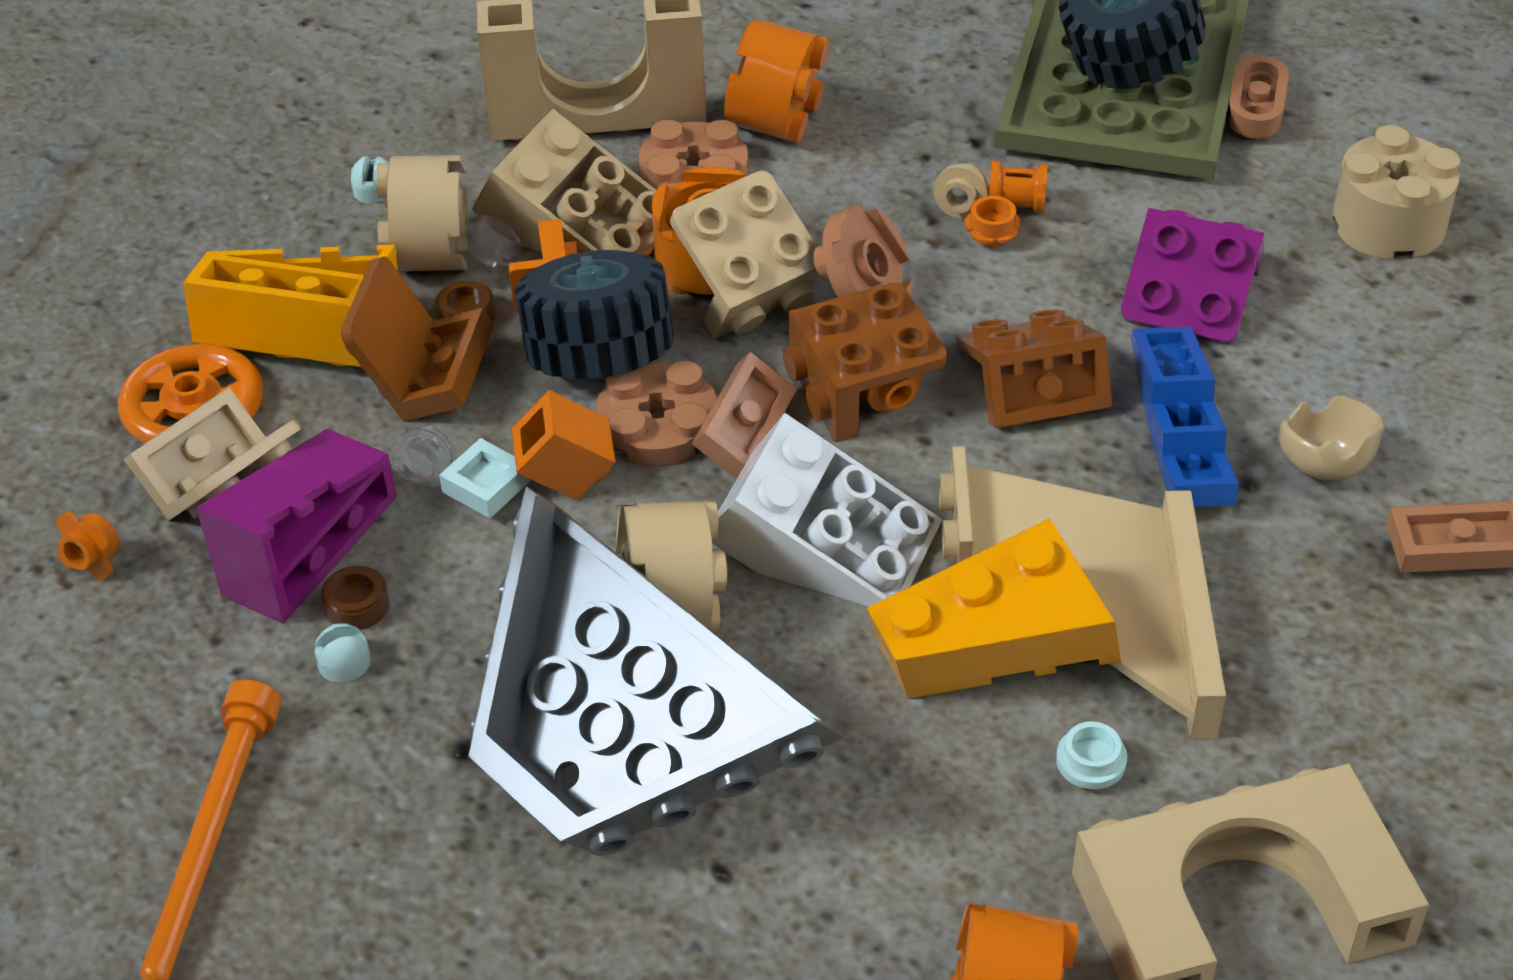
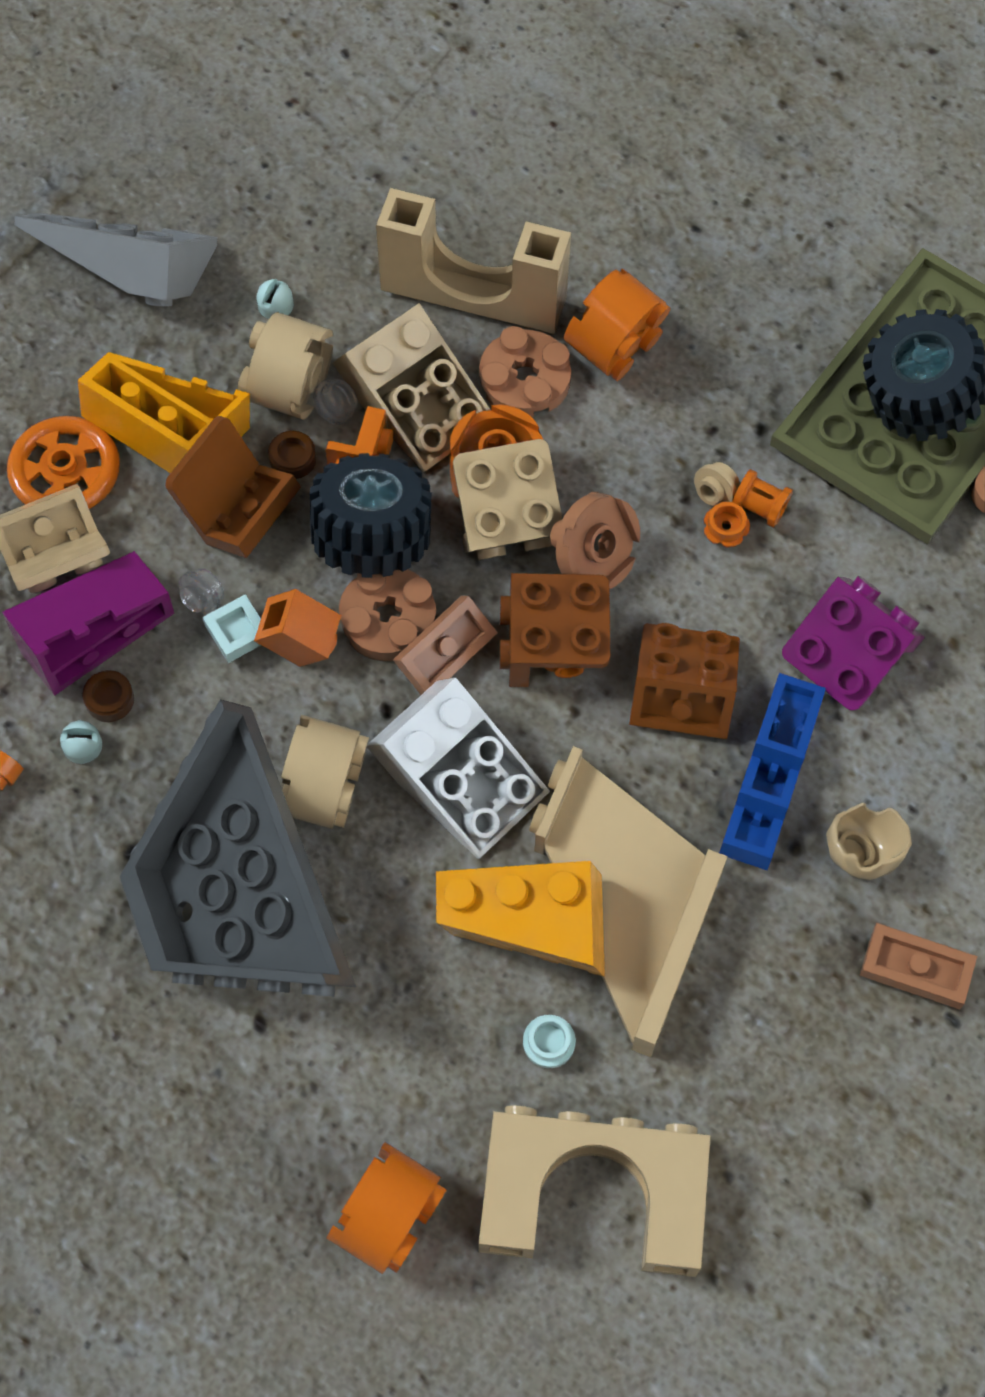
camera: 20 degrees right, 20 degrees up
(206, 176) = (140, 263): none -> light grey wedge

